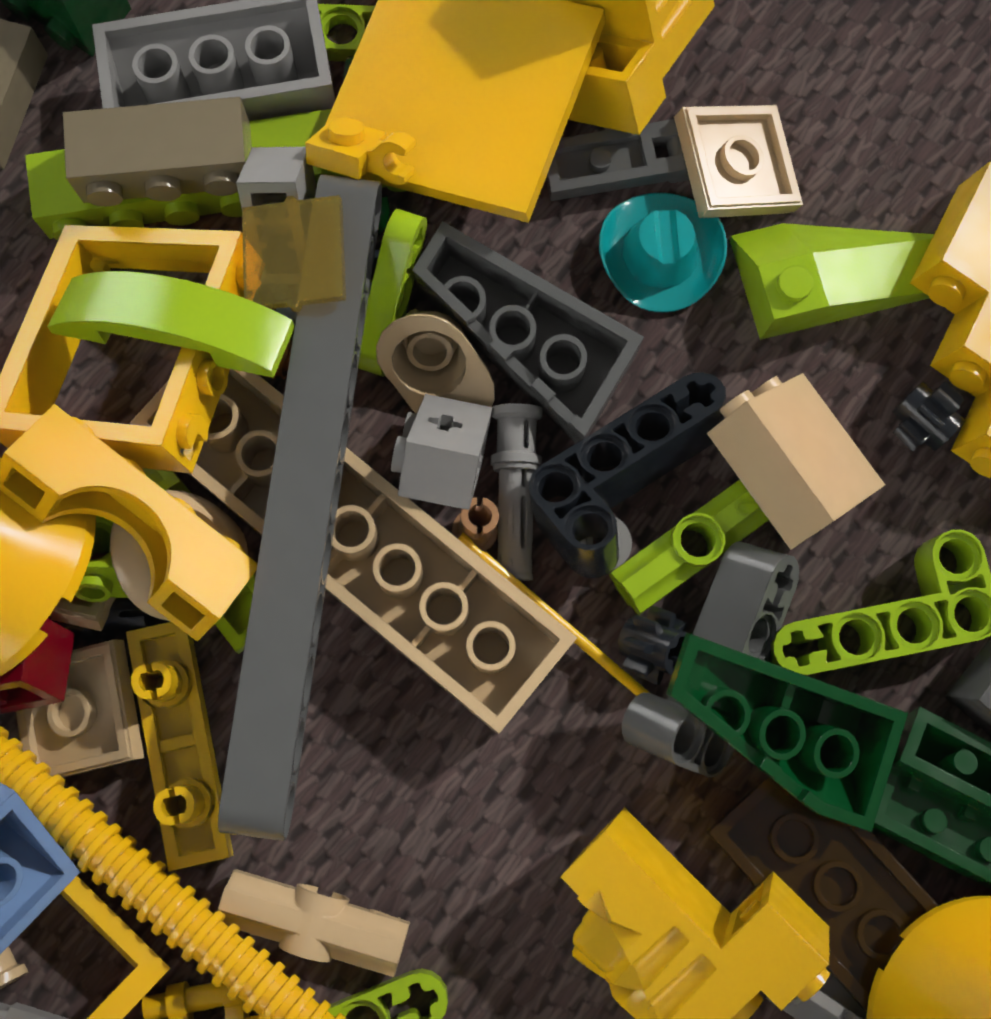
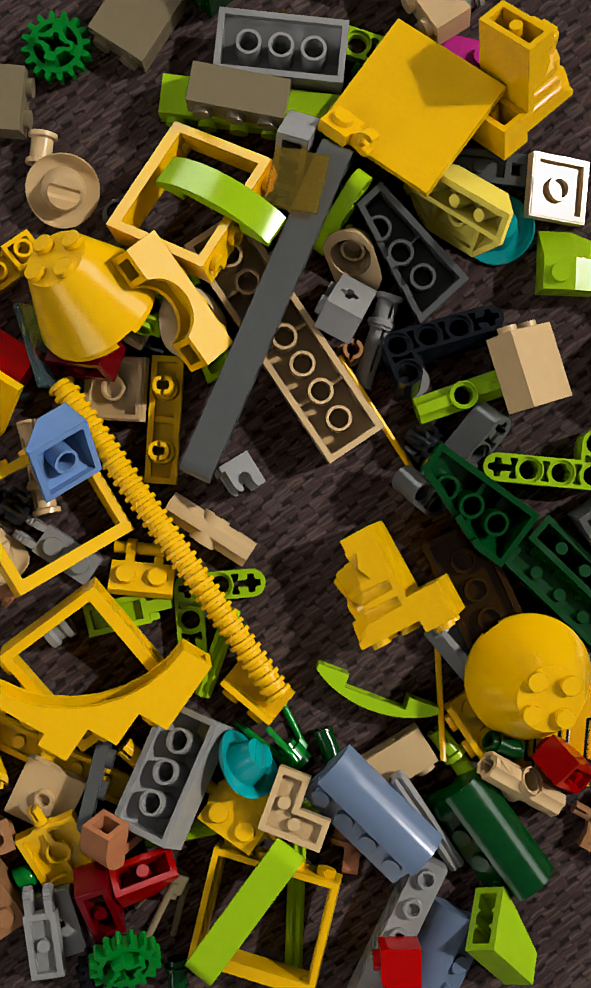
camera: 25 degrees right, 10 degrees up
(333, 795) = (238, 472): none -> light grey hinge
(599, 232) = (465, 211): none -> light yellow wedge

